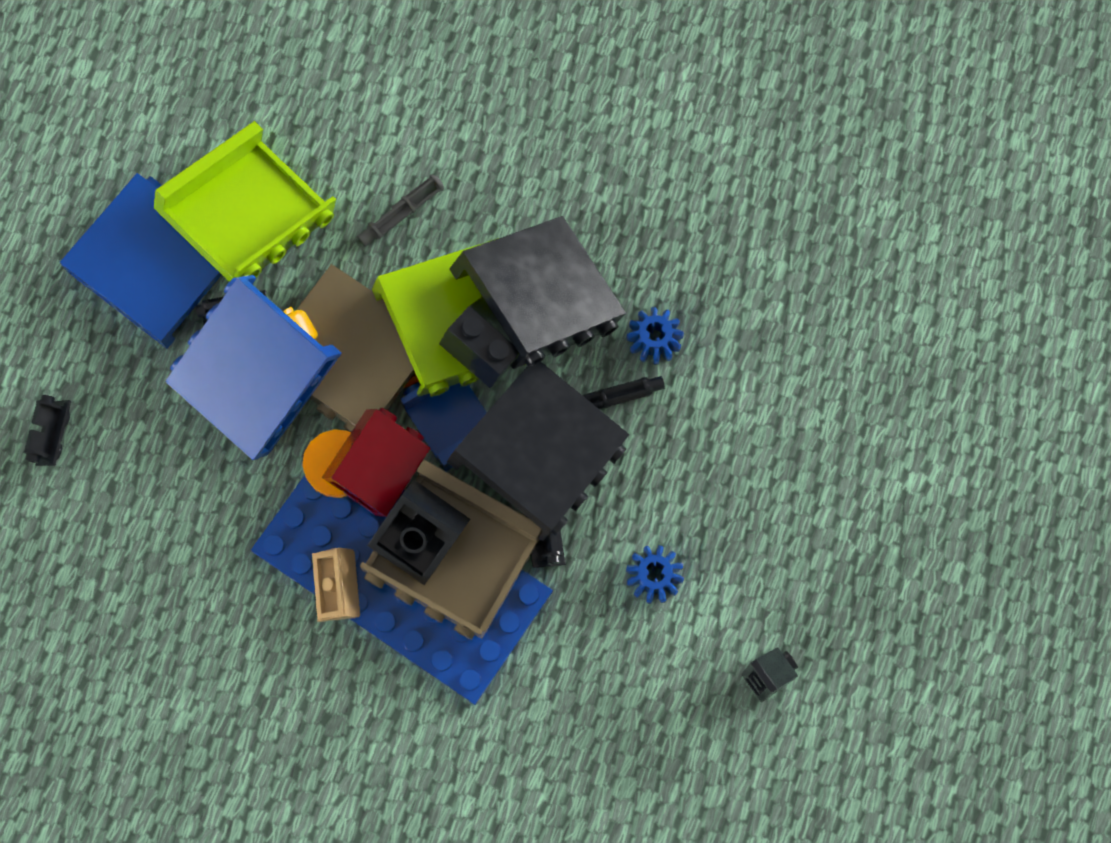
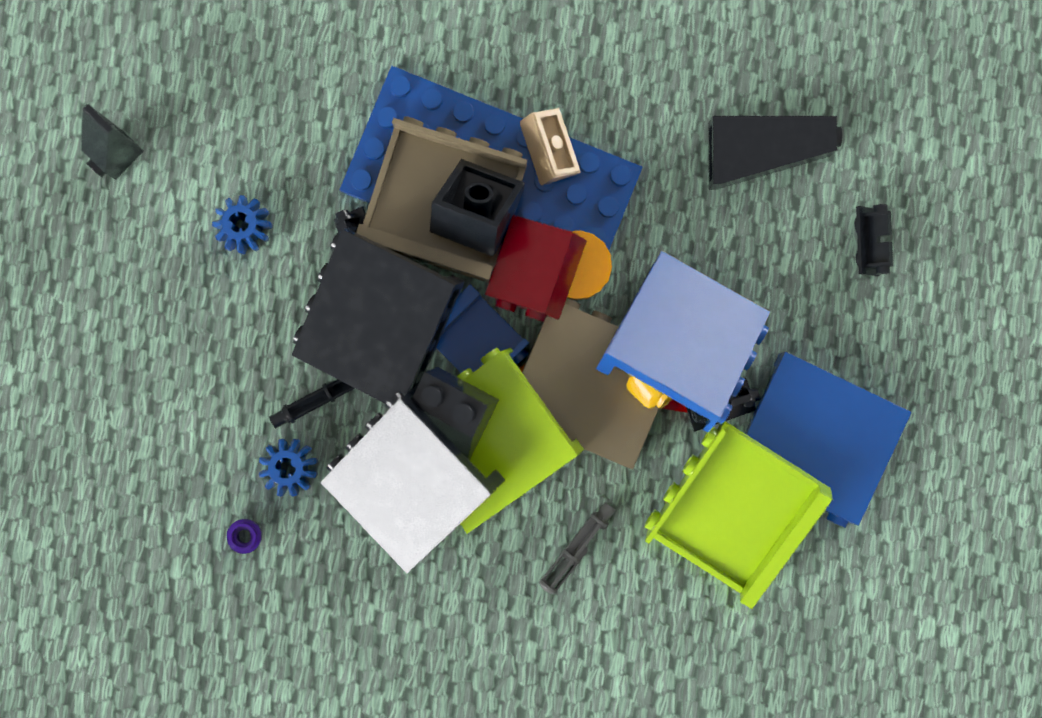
camera: 165 degrees right, 10 degrees up
(131, 544) = (762, 145): none -> black slope
(709, 274) = (234, 540): none -> dark purple plate

